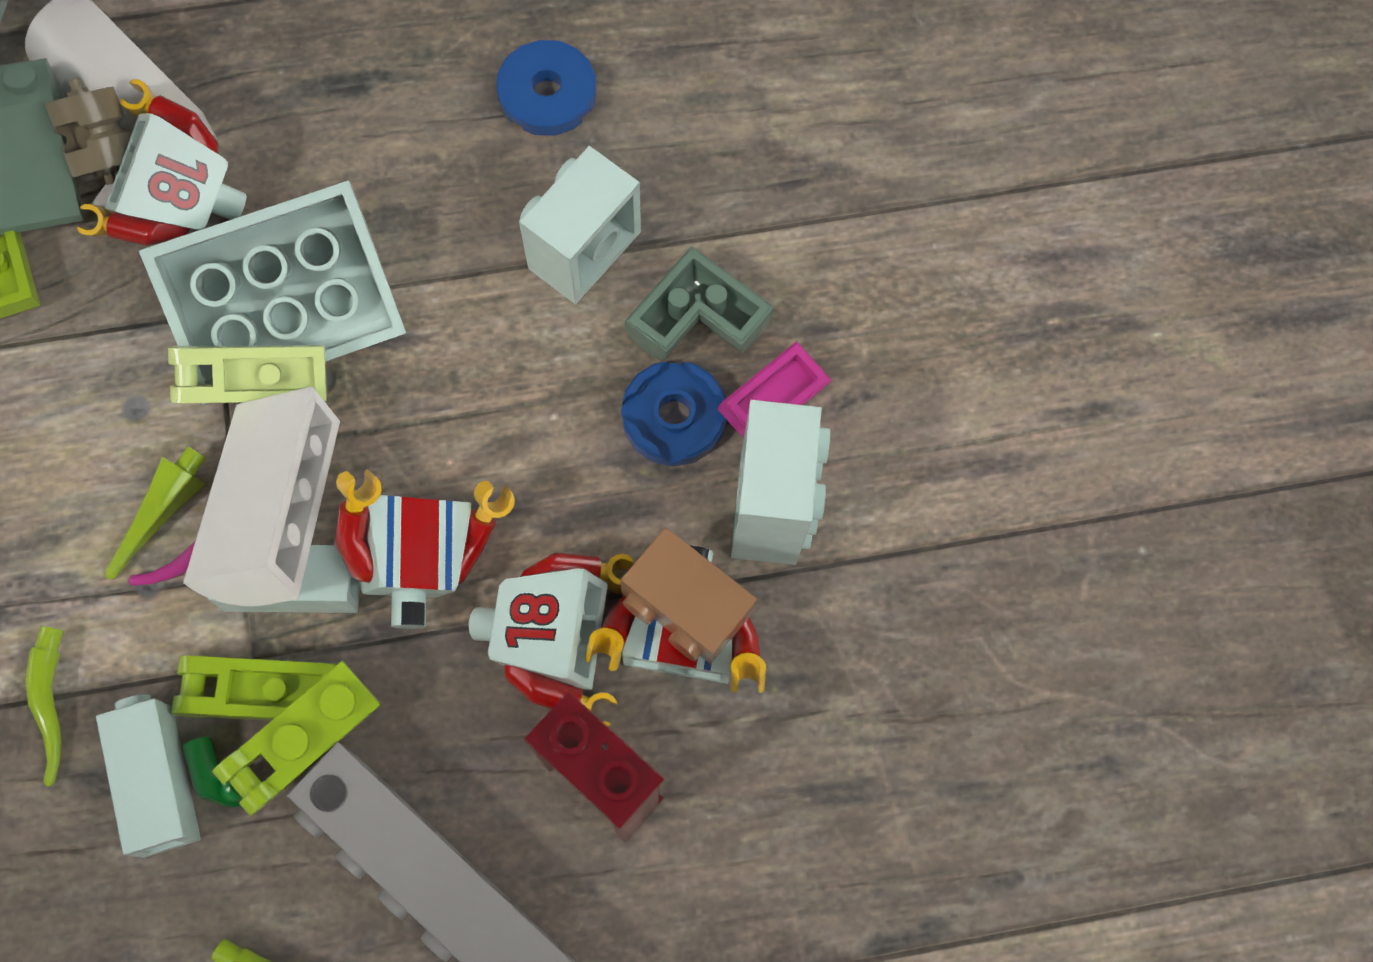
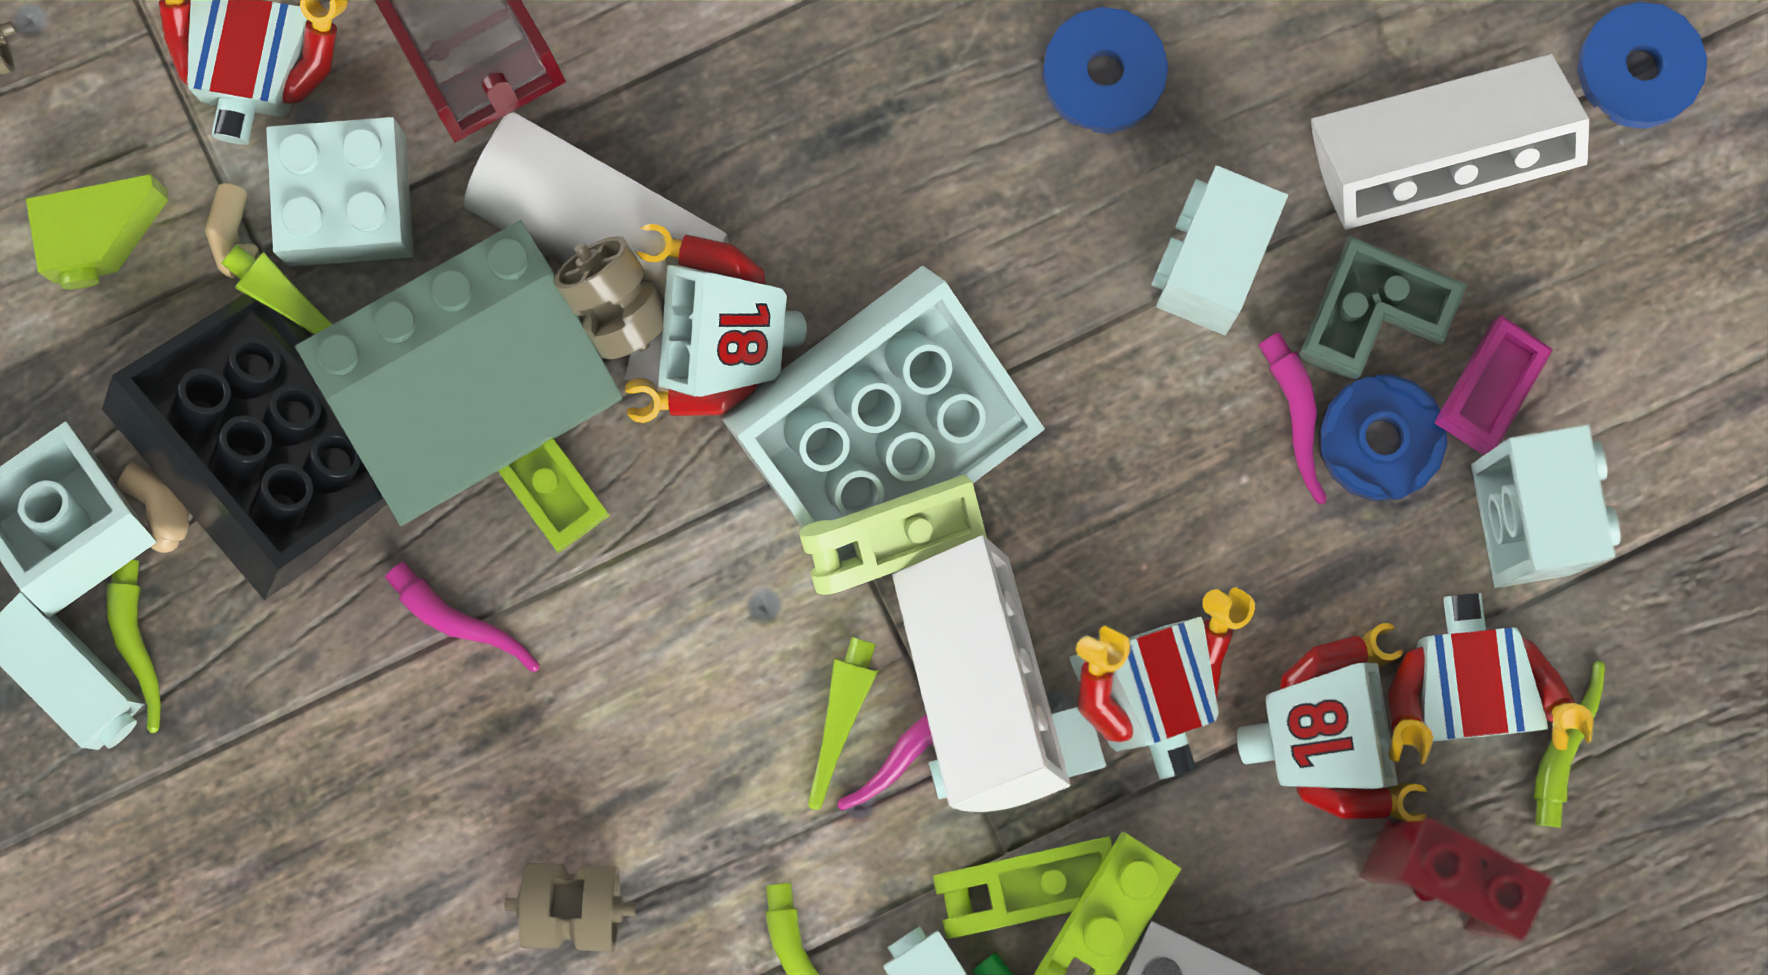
camera: 10 degrees left, 10 degrees up
(617, 363) = (1298, 390): none -> dark pink animal
(686, 597) = (1483, 662): medium nougat brick -> none
(734, 715) = (1555, 764): none -> lime animal
(796, 203) = (1450, 141): none -> white brick
(972, 166) = (1662, 35): none -> blue tile

